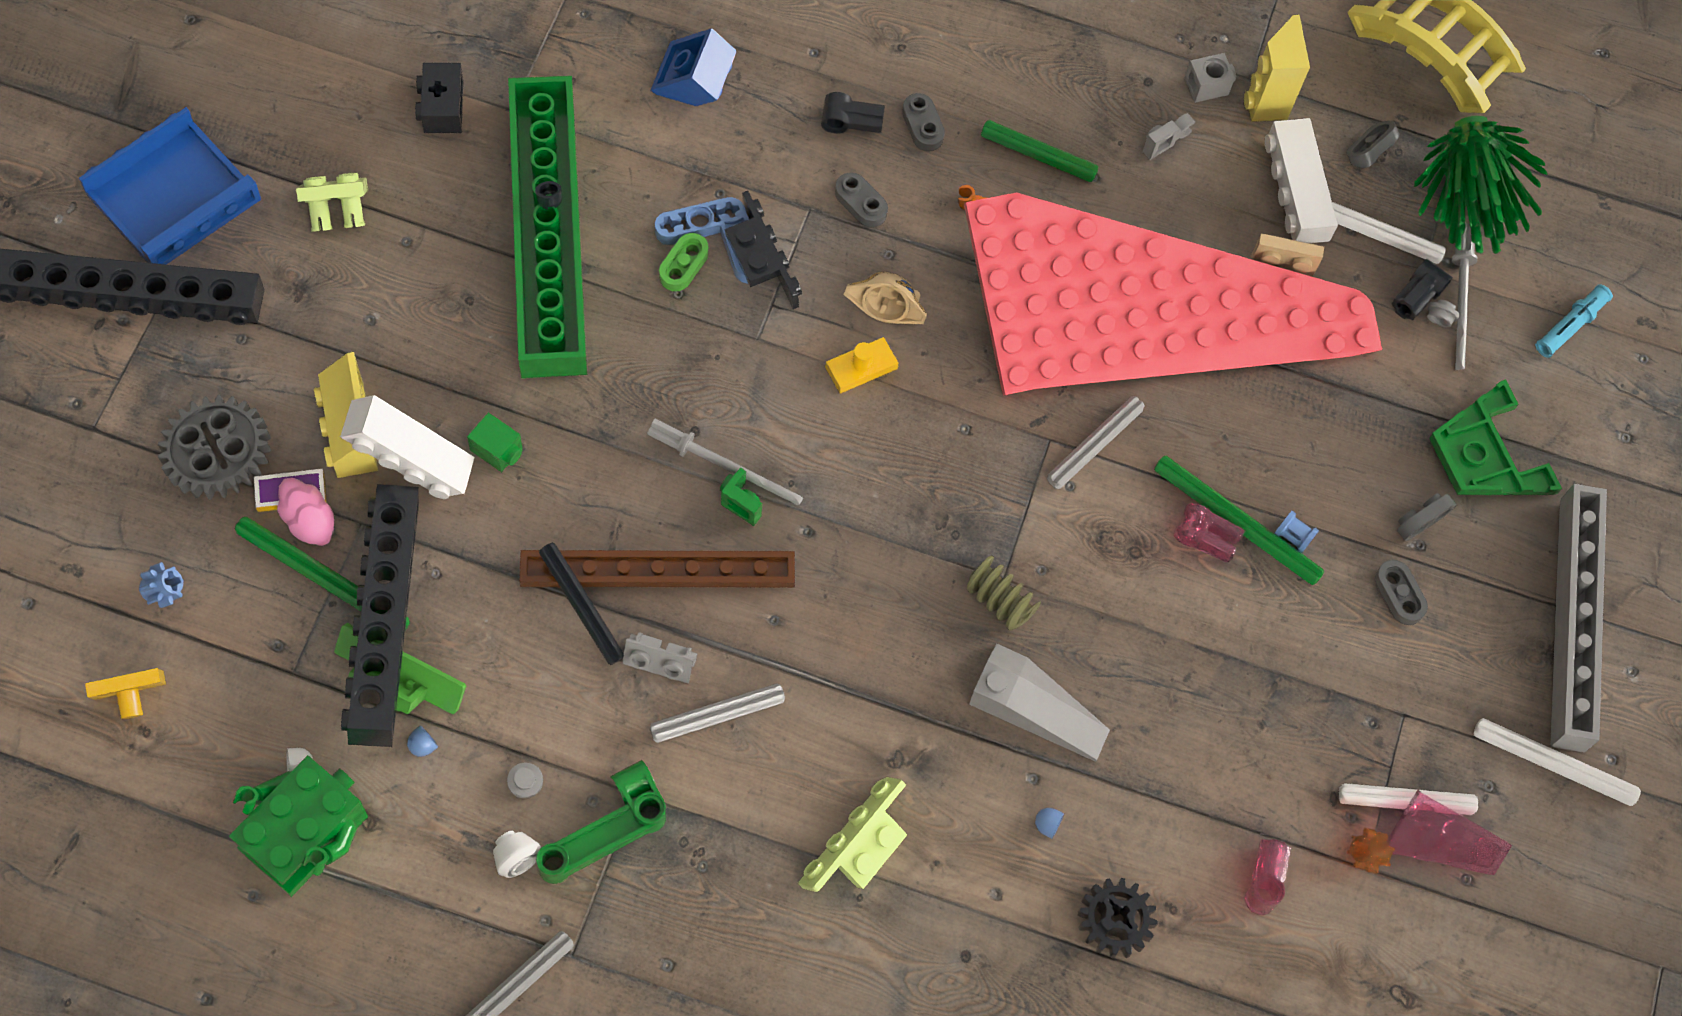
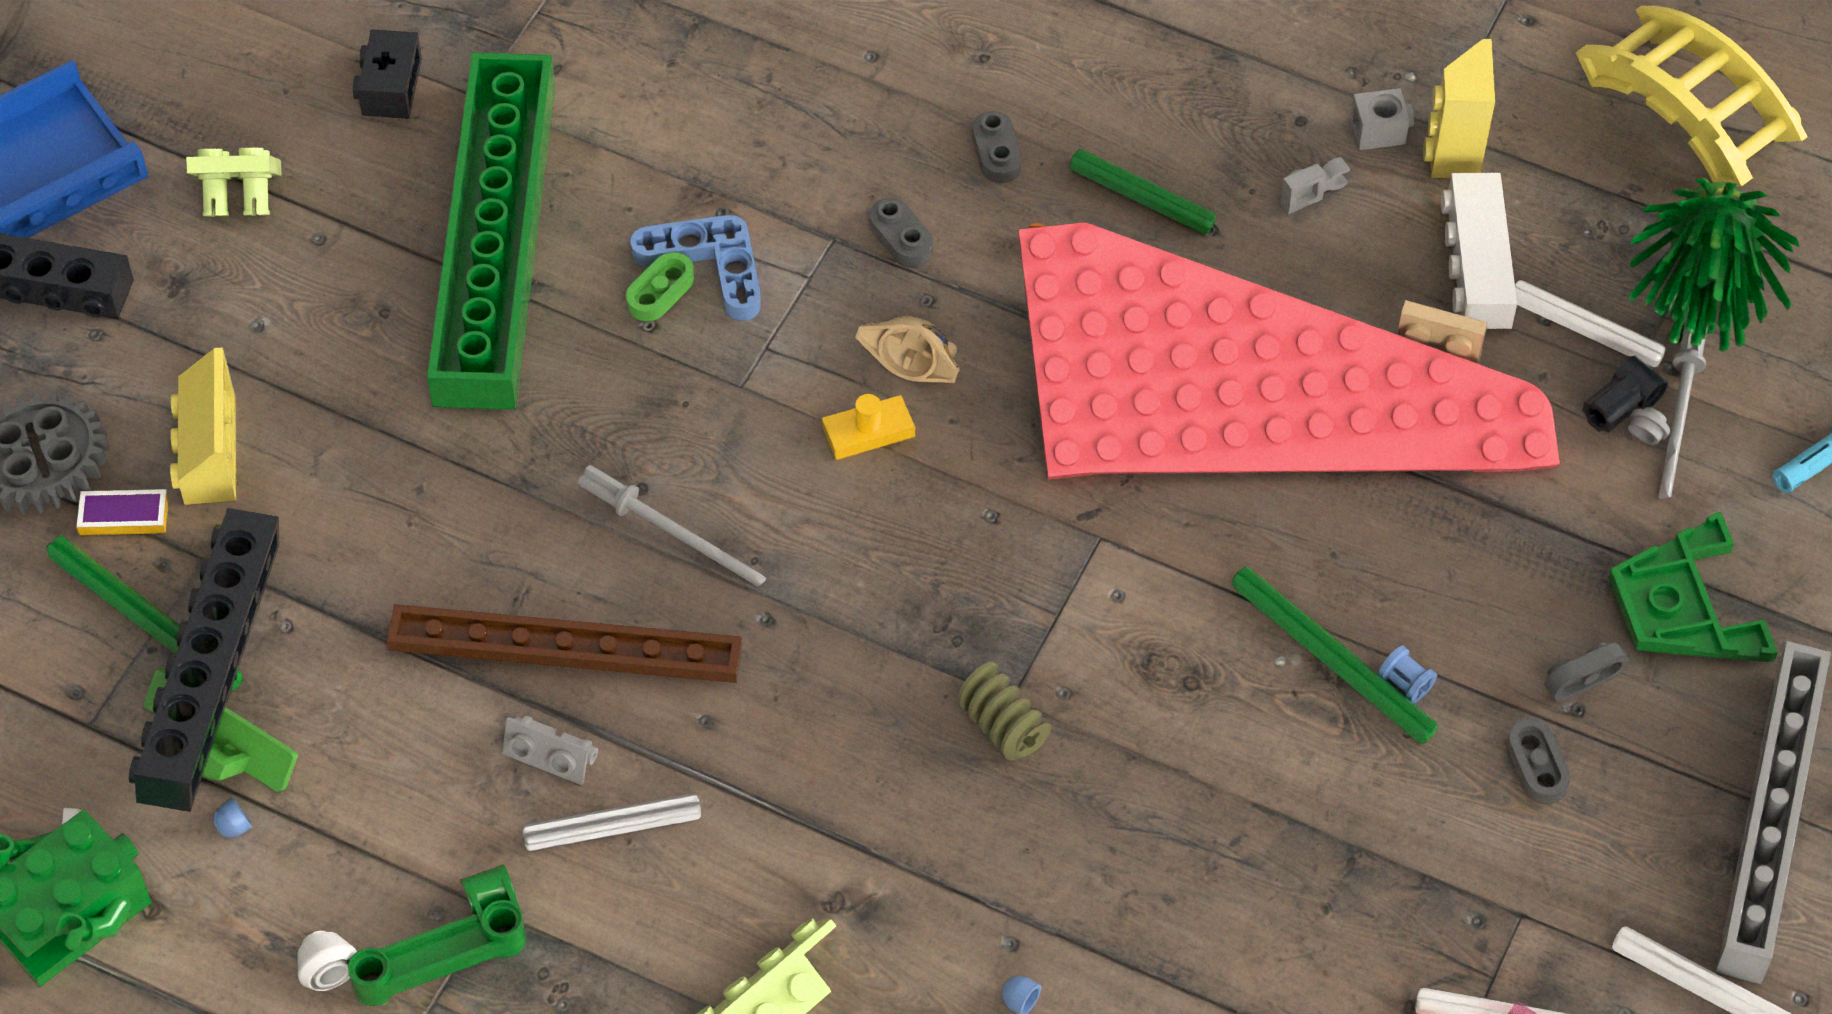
camera: 15 degrees right, 10 degrees down
(305, 512) = (136, 537): bright pink arm -> none
(407, 447) = (269, 463): white brick -> none
(495, 442) = (385, 477): green brick -> none
(525, 780) = (353, 877): light grey plate -> none
(547, 188) = (496, 187): black hinge -> none
(581, 603) = (459, 673): black axle -> none
(694, 68) = (713, 62): blue slope -> none
(738, 501) = (682, 570): green bracket -> none
(756, 251) = (753, 280): black bracket -> none
(843, 114) = (894, 127): black piece -> none
(1030, 699) = (1022, 846): light grey wedge -> none
(1095, 442) = (1158, 544): light grey axle -> none
(1209, 532) = (1289, 665): clear pink piece -> none
(1372, 144) = (1591, 210): dark grey plate -> none

